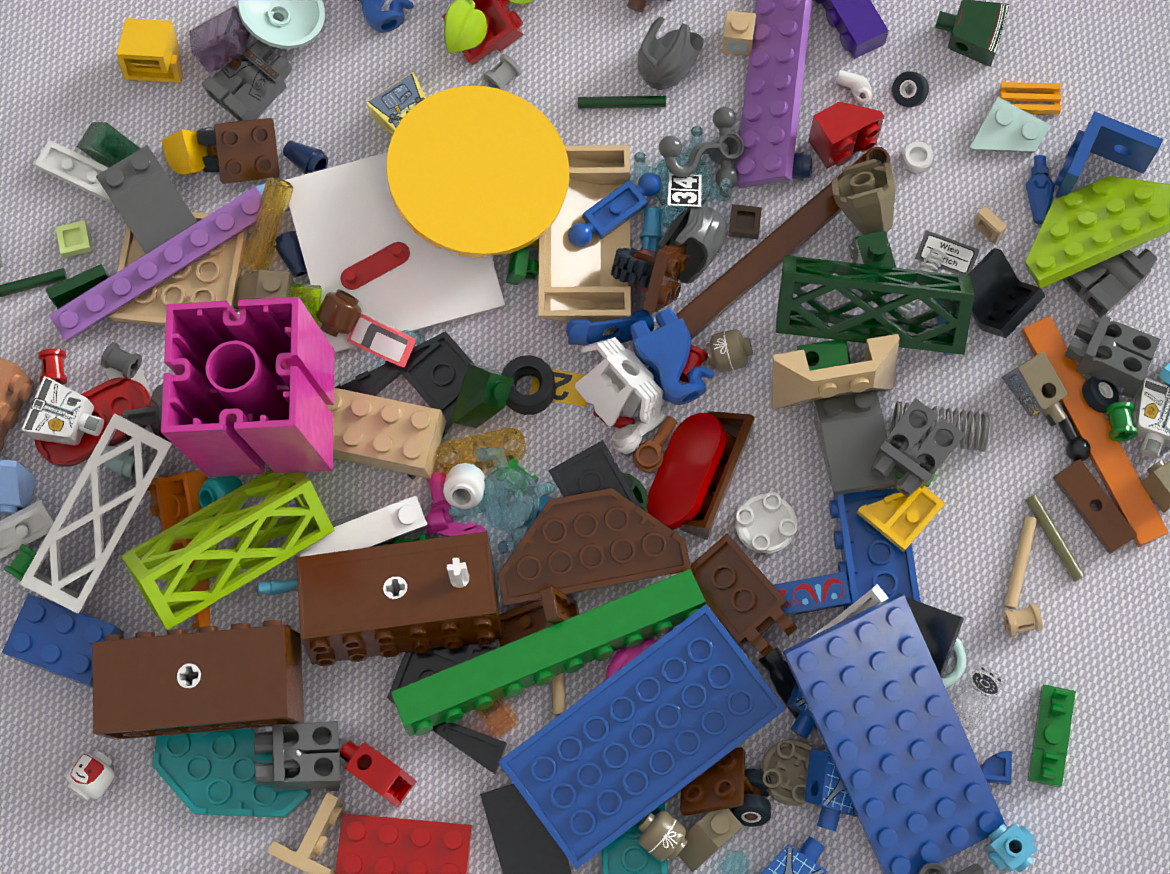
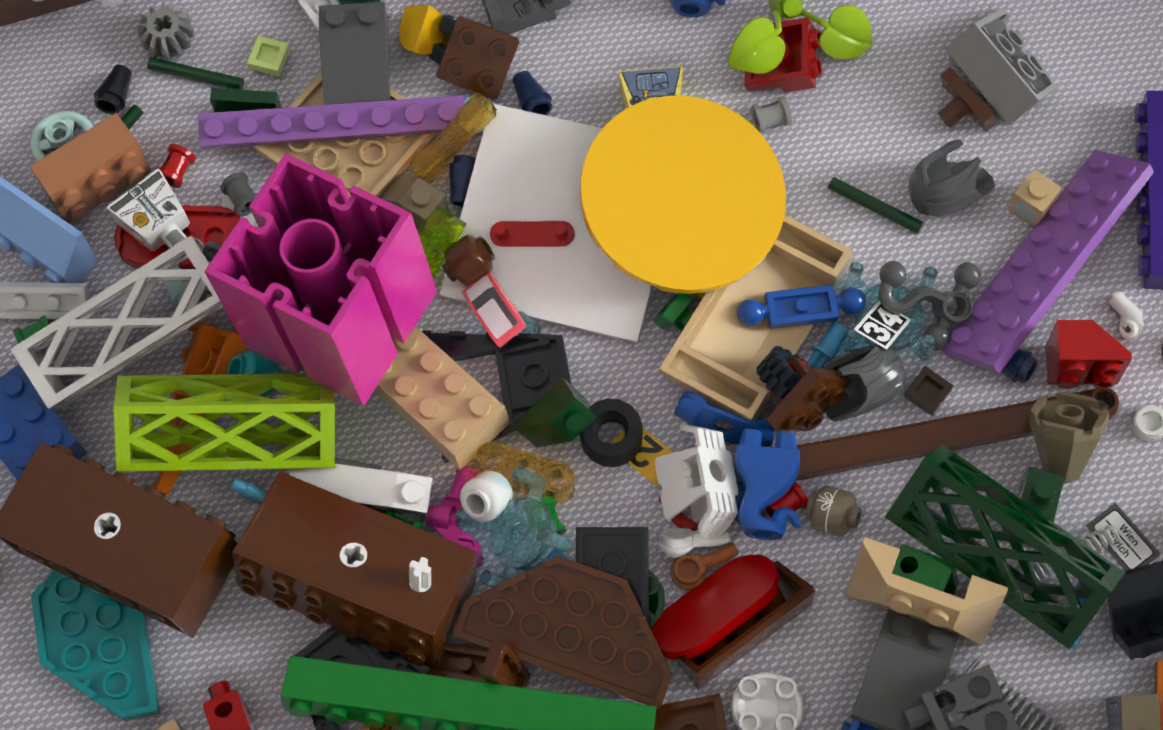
camera: 30 degrees right, 5 degrees down
(301, 756) = (170, 669): dark grey hips -> none

